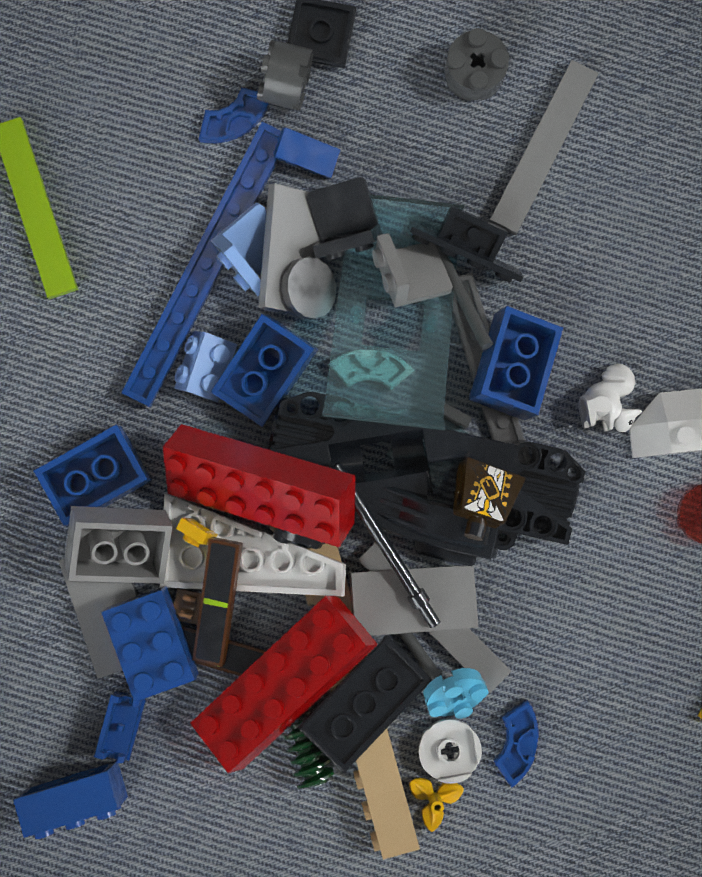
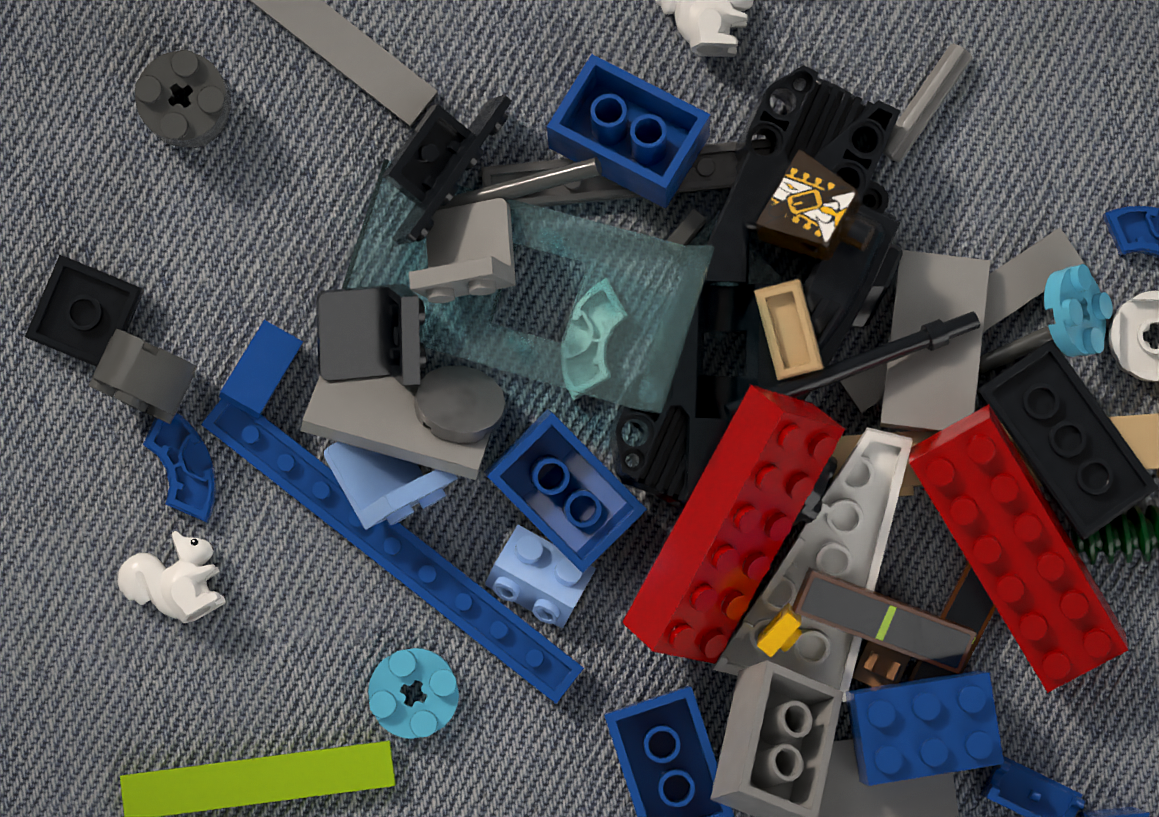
camera: 70 degrees left, 0 degrees up
(102, 283) = (389, 703): none -> medium azure plate
(149, 128) = (175, 590): none -> white animal
(400, 496) = (788, 329): none -> tan tile
(578, 563) = (926, 101): none -> light grey axle

